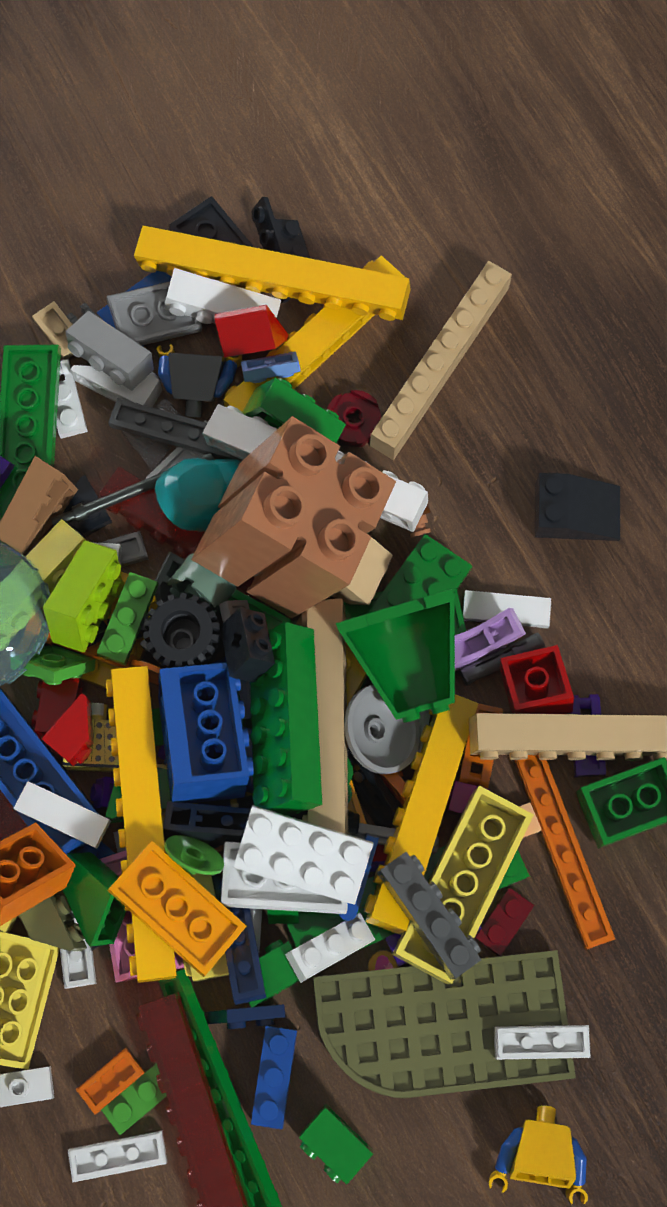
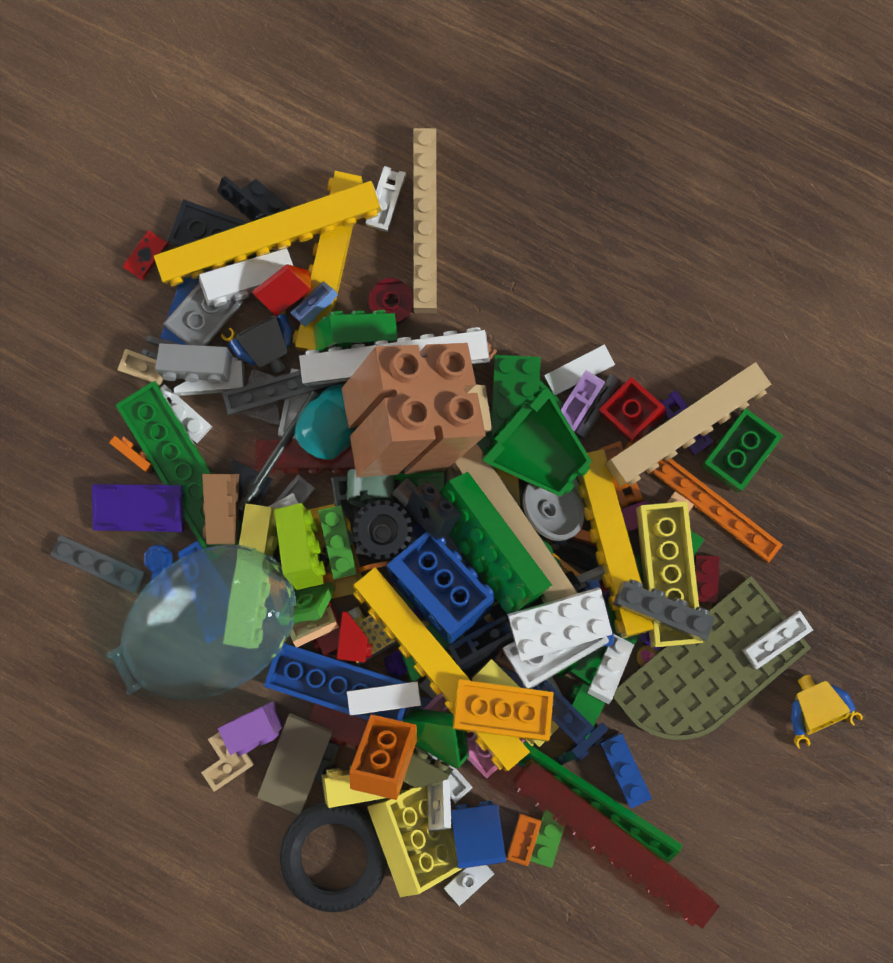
camera: 35 degrees left, 10 degrees up
(34, 691) = (309, 630): none -> light nougat plate
(43, 976) = (439, 806): none -> white plate
(61, 1040) = (478, 835): none -> blue slope
(117, 1156) = (557, 881): white tile -> none
(128, 229) = (142, 257): none -> red tile
(194, 855) = (490, 669): bright green dish -> none
(335, 1145) = (690, 785): green brick -> none
(416, 316) = (388, 198): none -> white plate
(576, 508) = (582, 270): black slope -> none

